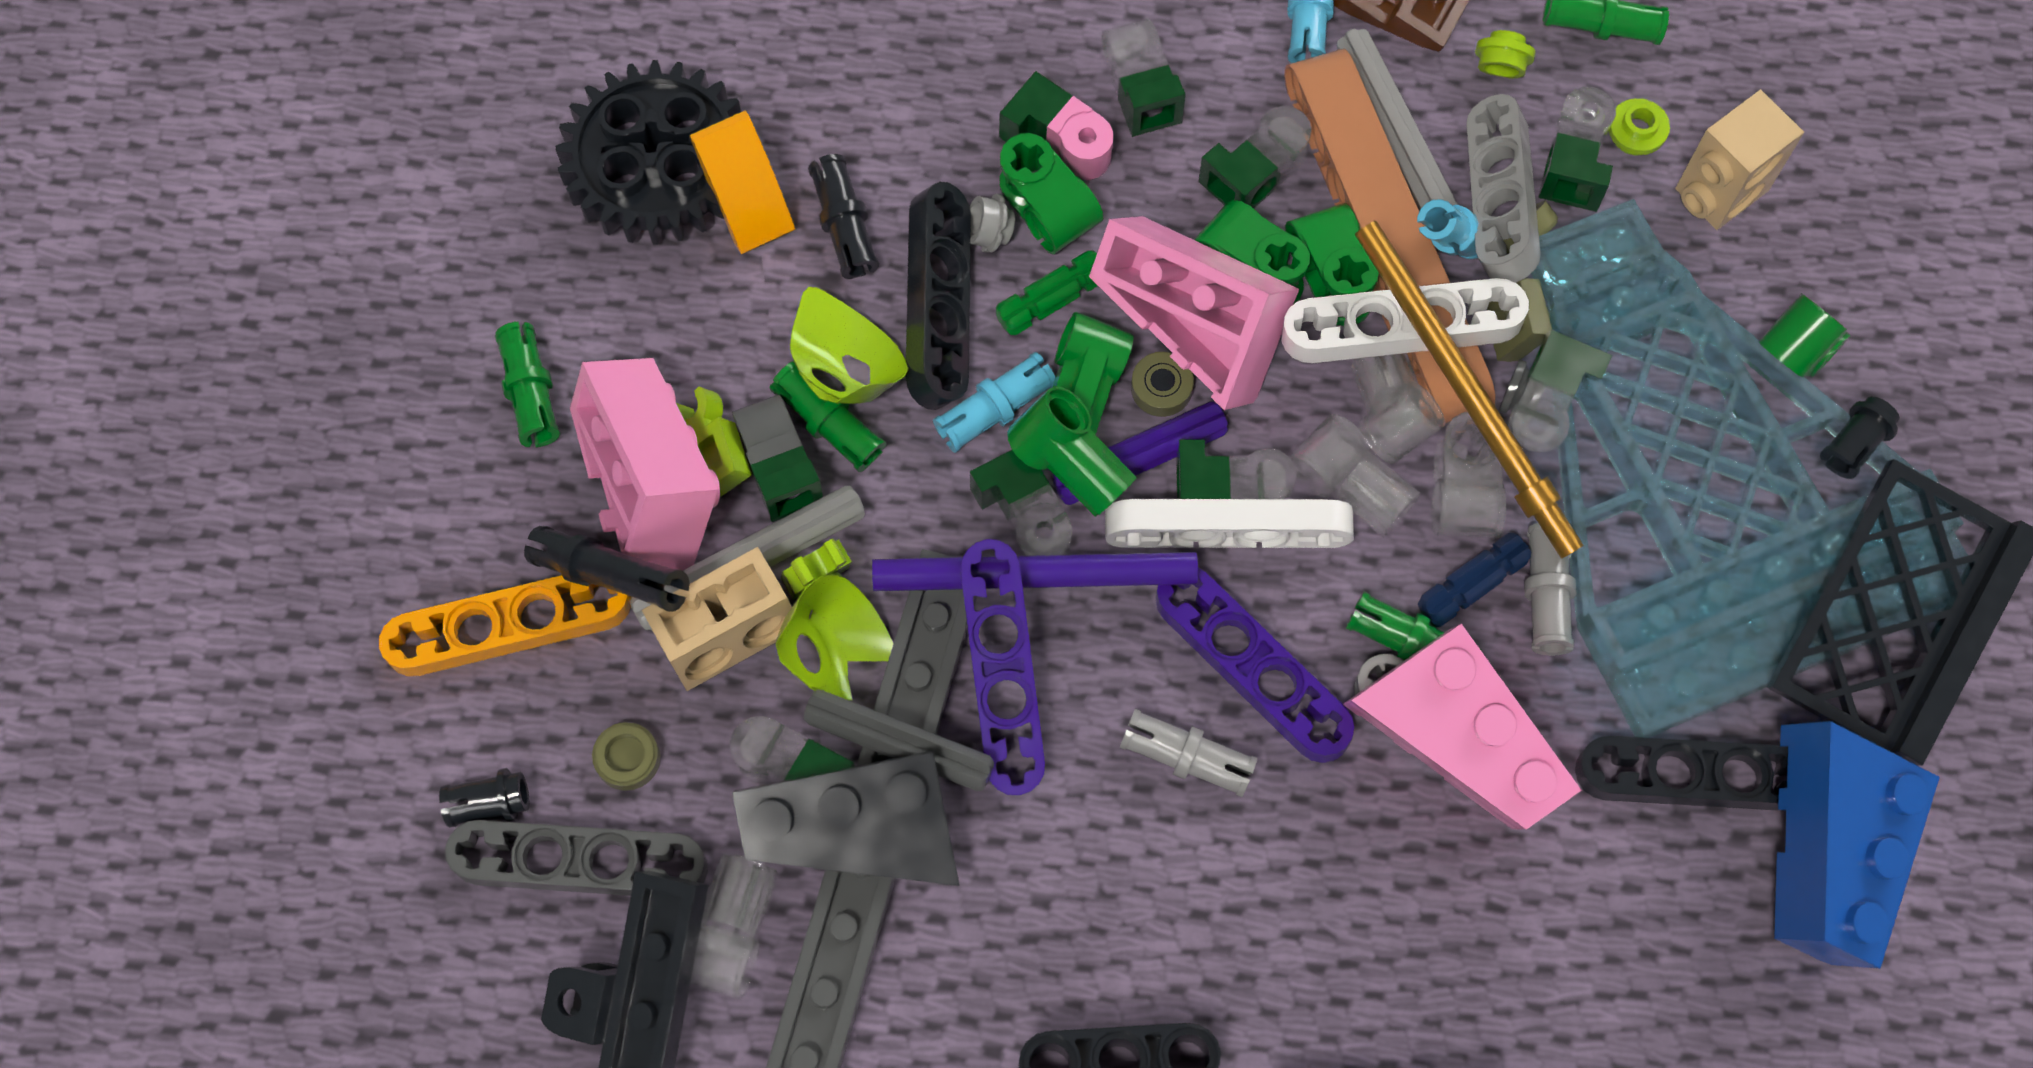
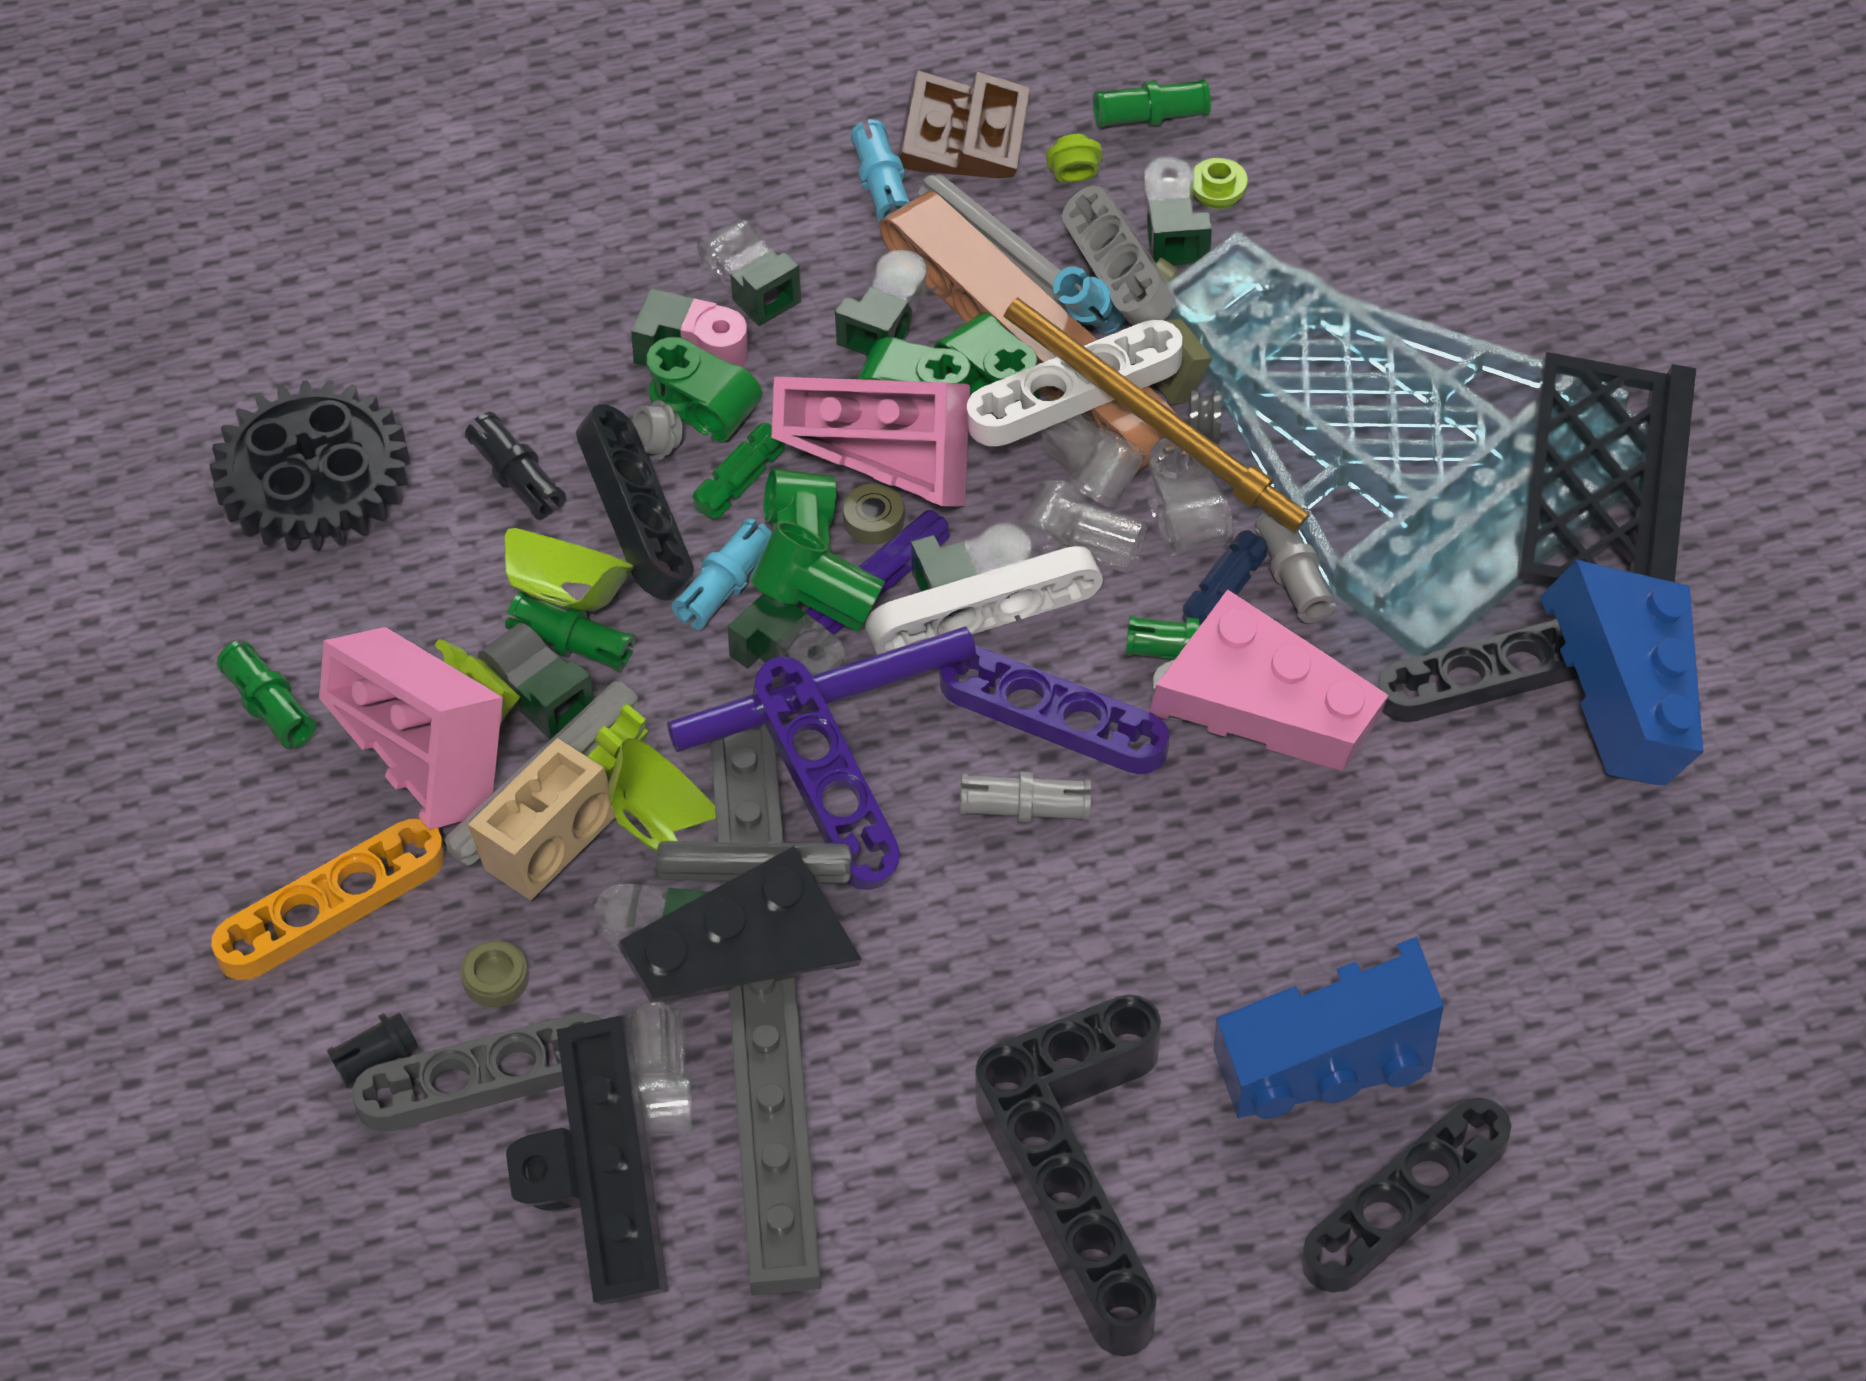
camera: 20 degrees left, 15 degrees down
(590, 562) = (395, 809): black pin -> none
(742, 181) = (412, 456): light orange slope -> none
(1541, 408) = (1228, 377): leg -> none
(1738, 160) = (1316, 174): tan brick -> none
(1804, 337) = (1435, 291): green piece -> none
(1868, 426) = (1517, 342): black pin -> none

